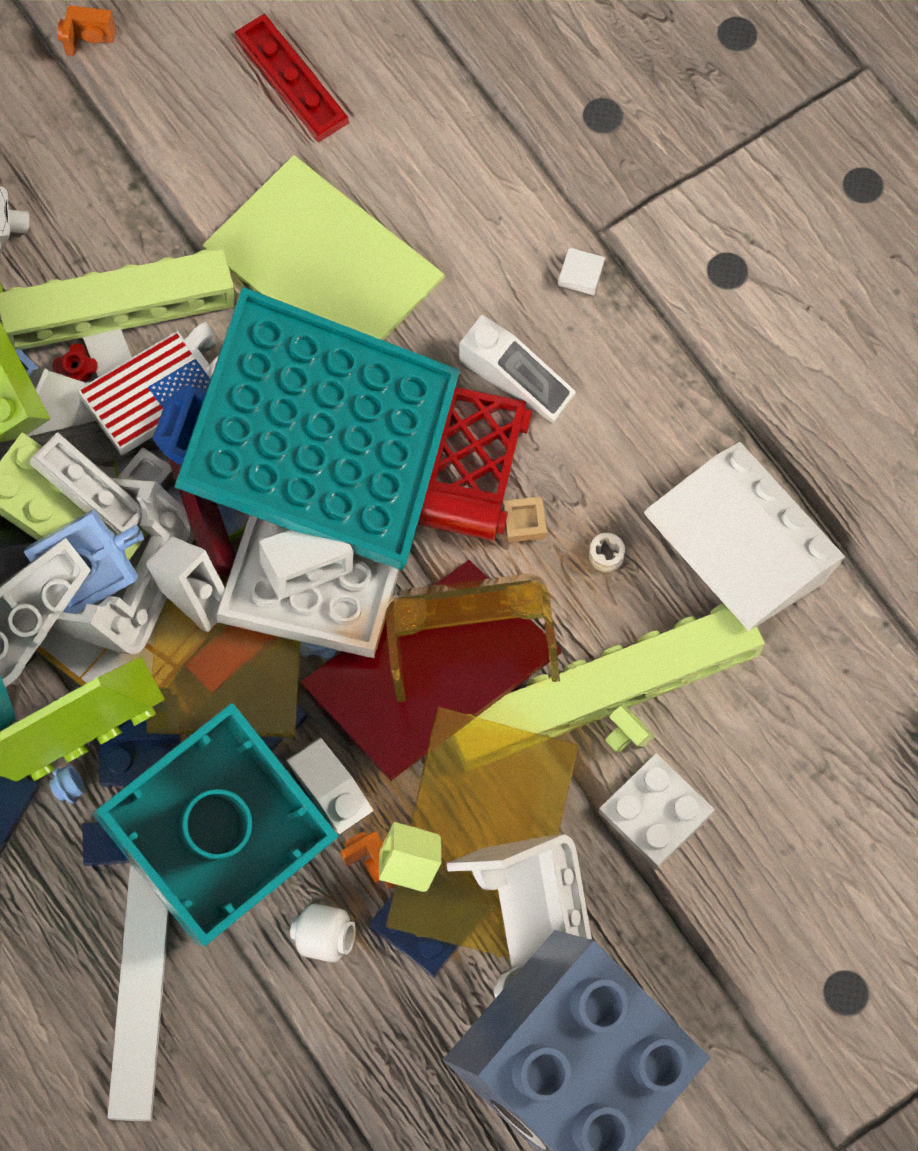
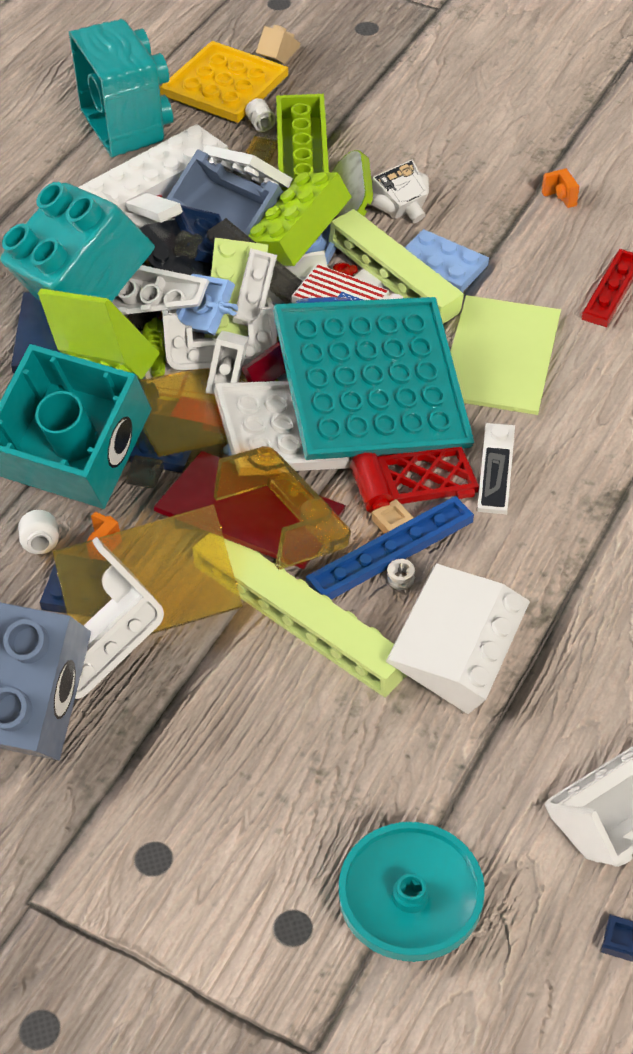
camera: 65 degrees right, 20 degrees down
(75, 657) = (154, 333): none -> lime hinge
(123, 233) = (450, 260): none -> light blue plate
(302, 561) = (274, 405): white slope -> none
(329, 785) = (136, 491): white slope -> none
(410, 857) = (108, 529): yellowish green panel -> none
(568, 546) = (396, 544): none -> blue plate
(581, 271) = (597, 477): white tile -> none
(629, 729) = (276, 635): yellowish green tile -> none
(656, 811) = (227, 681): white plate -> none

